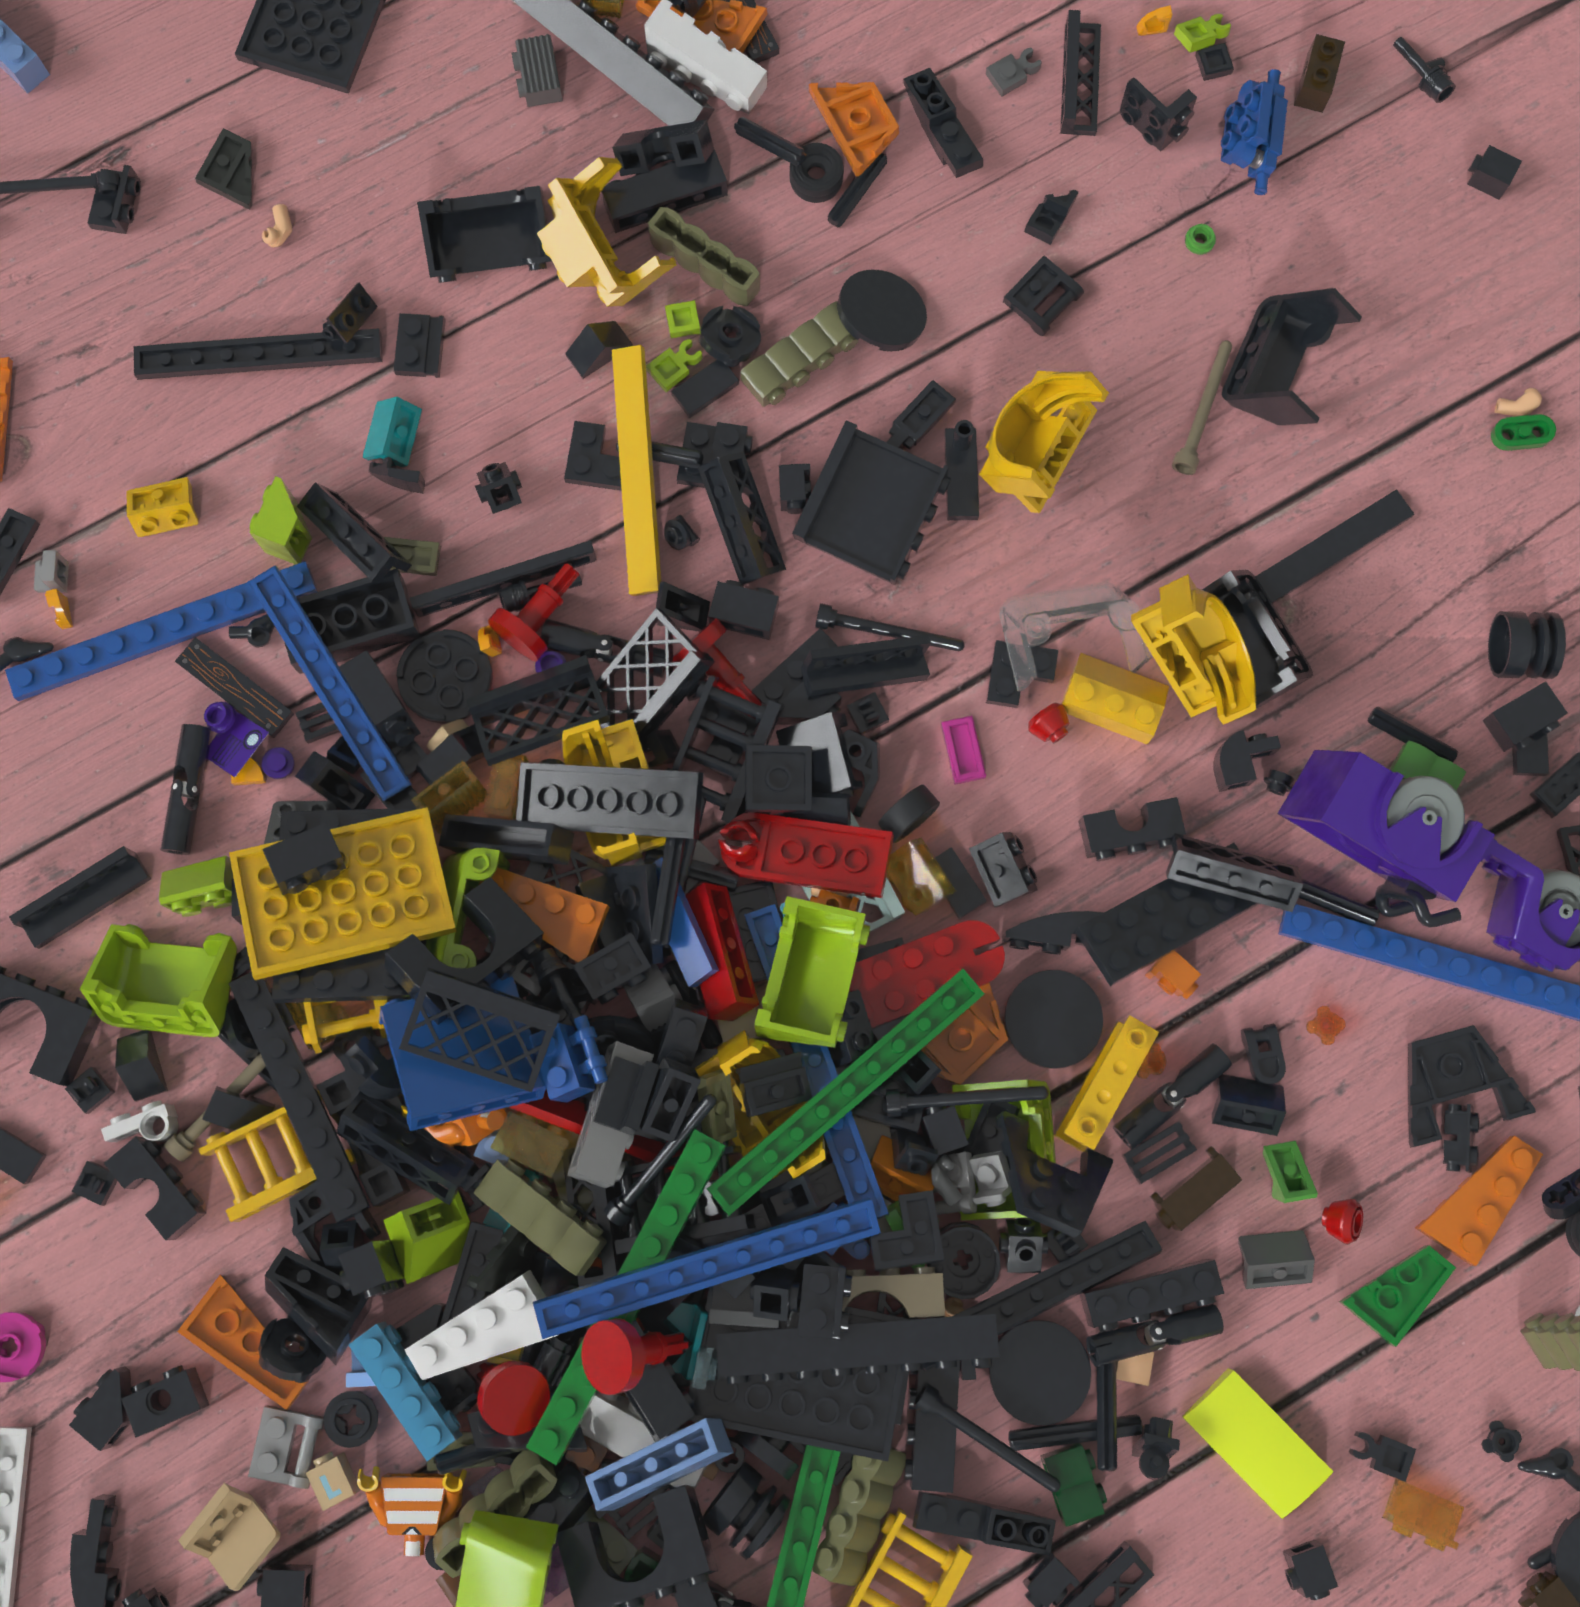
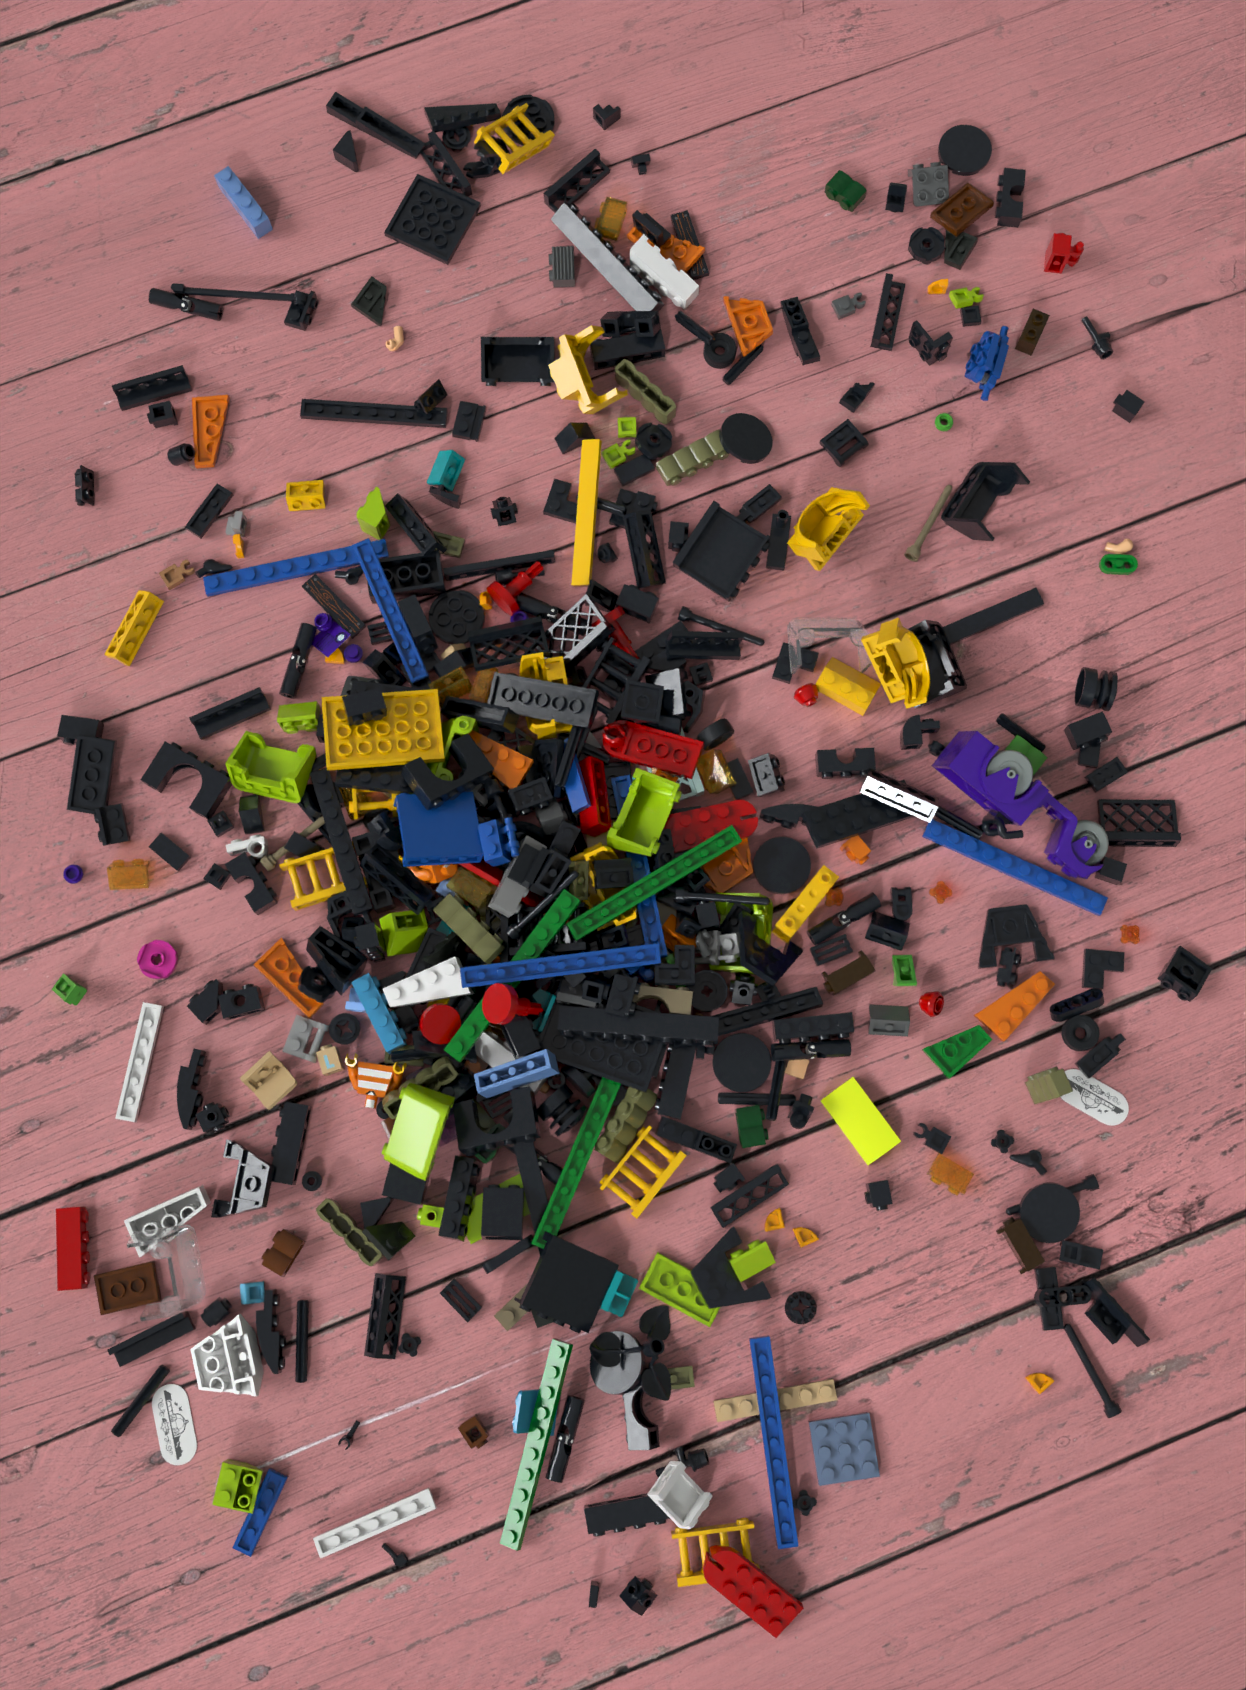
camera: 10 degrees right, 0 degrees up
(488, 1000) = (458, 799): black fence -> none
(705, 1368) = (550, 1024): clear light blue plate -> none
(931, 1402) = (676, 1066): black piece -> none
(963, 750) = (753, 703): dark pink tile -> none

